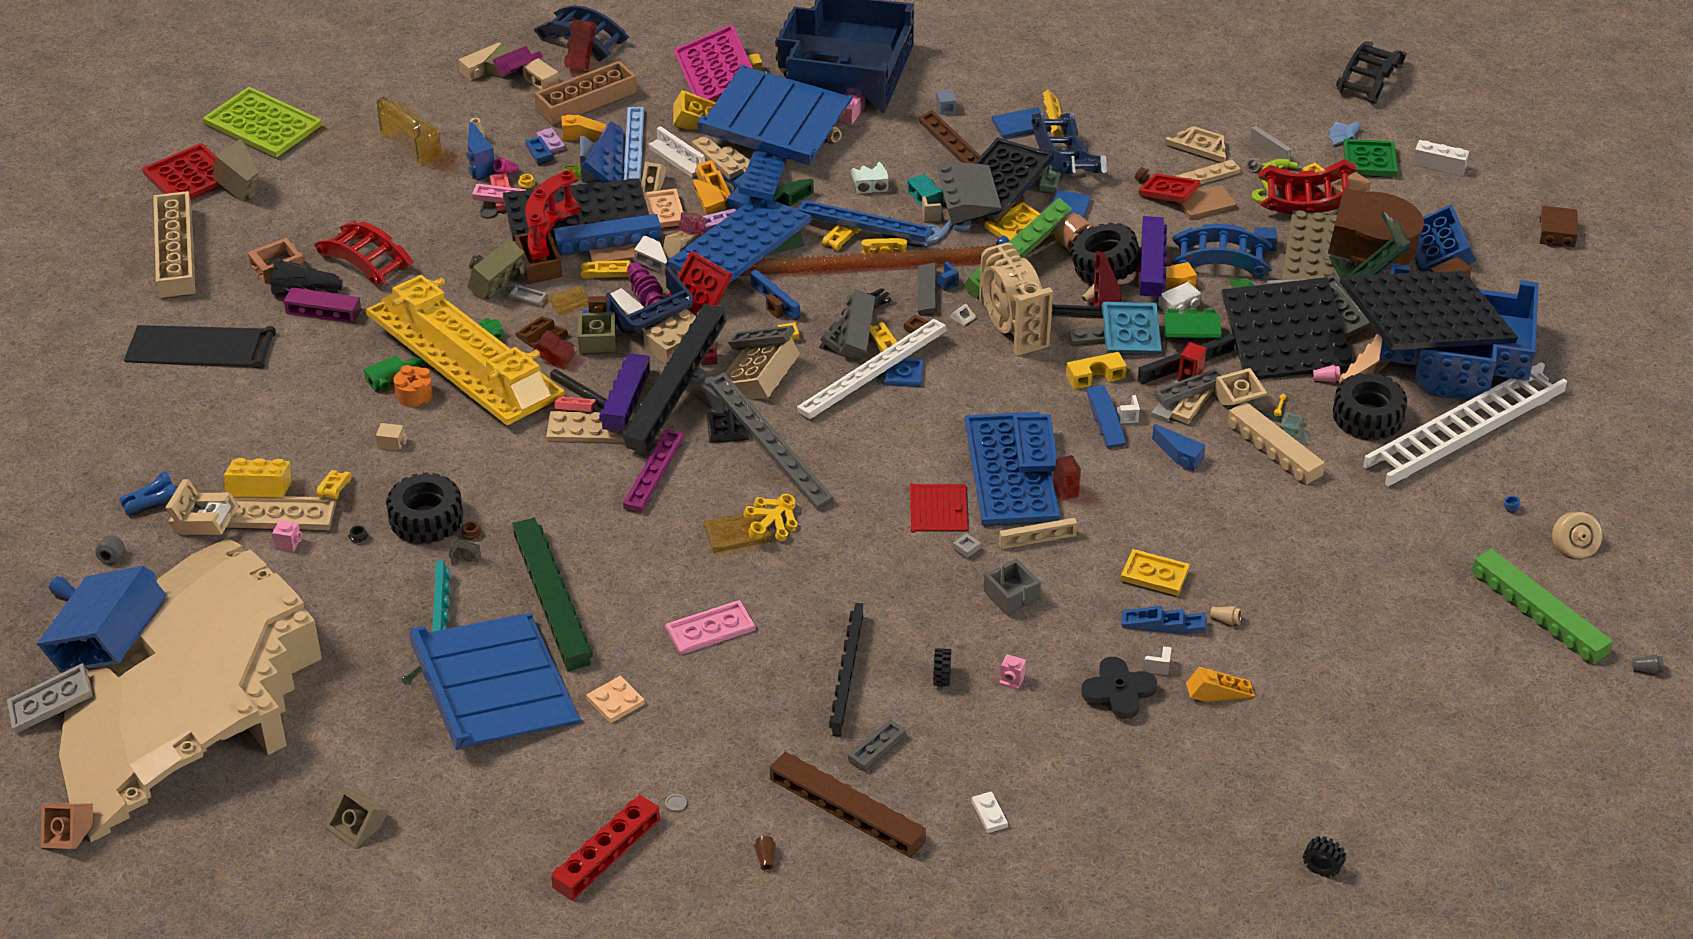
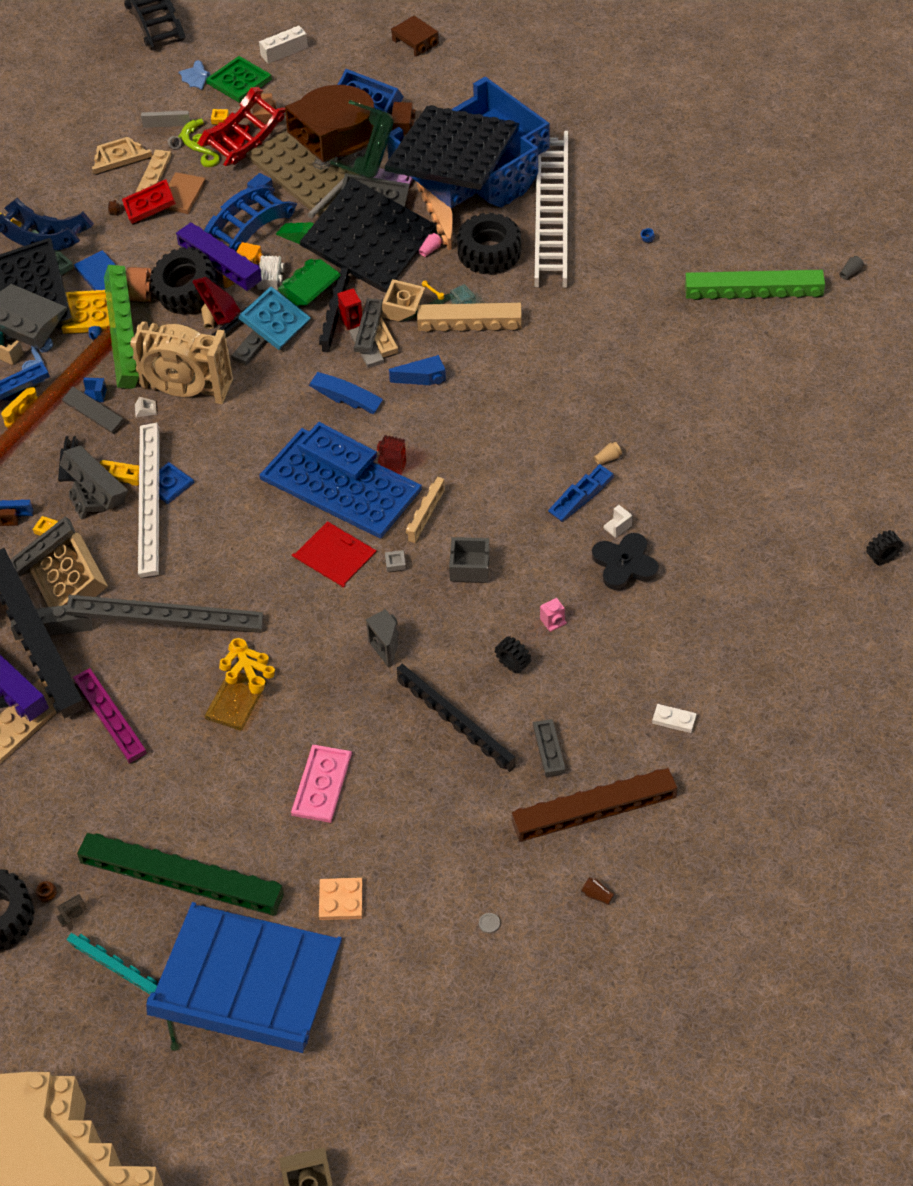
camera: 50 degrees left, 10 degrees up
(605, 847) = (489, 951): red brick -> none
(725, 427) = (108, 635): black slope -> none
(878, 578) = (383, 635): none -> dark grey slope
(914, 323) = (127, 442): reddish brown plate -> none
(1109, 365) = (286, 376): yellow arch -> none
(1129, 413) = (354, 374): white panel -> none
(1155, 572) = (529, 467): yellow plate -> none
(1216, 686) = (672, 504): light orange slope -> none
(1577, 535) = (710, 223): tan wheel -> none

